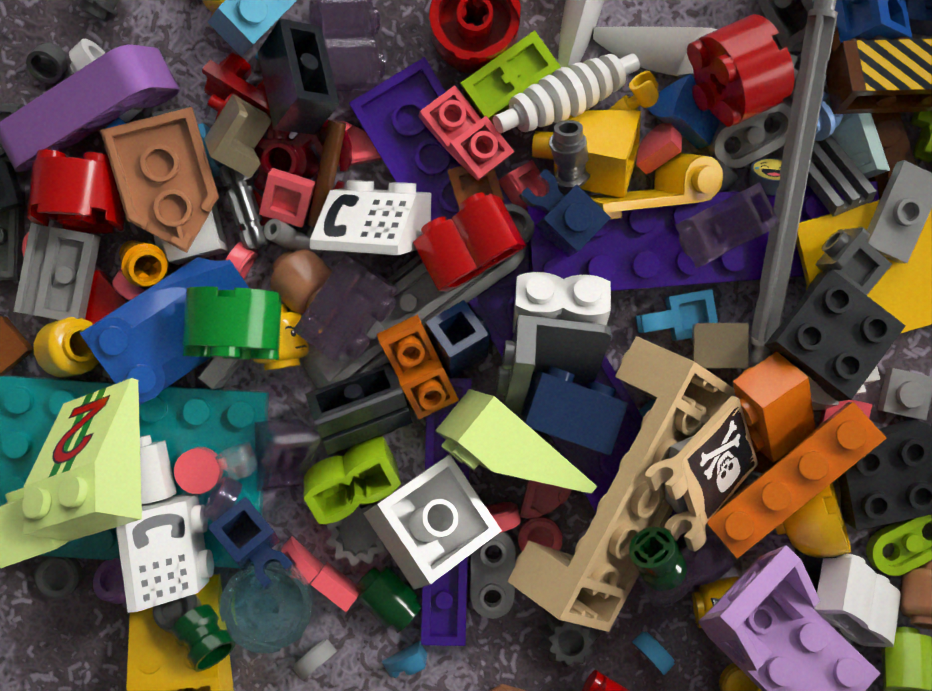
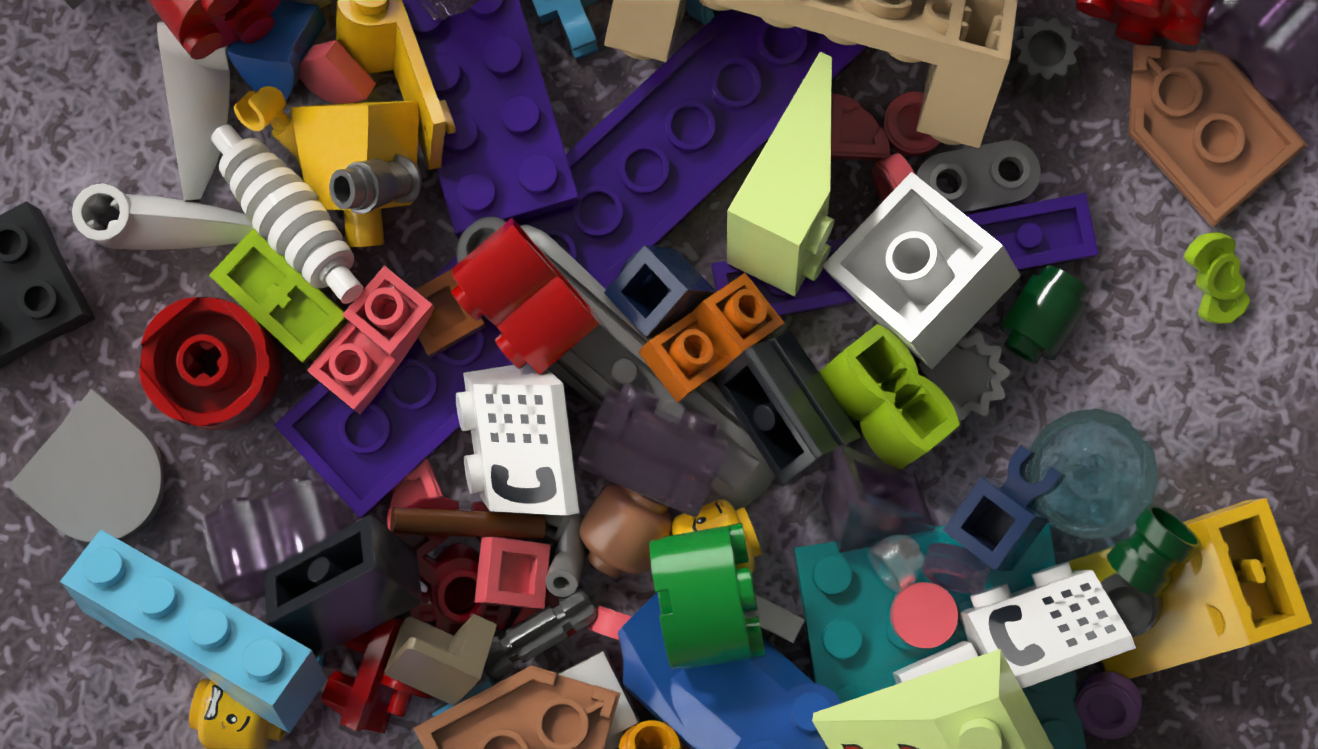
camera: 95 degrees left, 5 degrees down
(302, 558) = (1023, 434): coral tile -> none
(314, 659) = (1154, 399): light grey tile -> none
(336, 586) = (1044, 389): coral tile -> none
(409, 660) = (1122, 266): dark azure tile -> none
(521, 178) = (426, 246): coral tile -> none
(546, 343) = (650, 158): dark grey bracket -> none
(567, 299) = (585, 148): white brick -> none
(569, 217) = (462, 167): dark blue brick -> none
(573, 411) = (726, 109): dark blue brick -> none

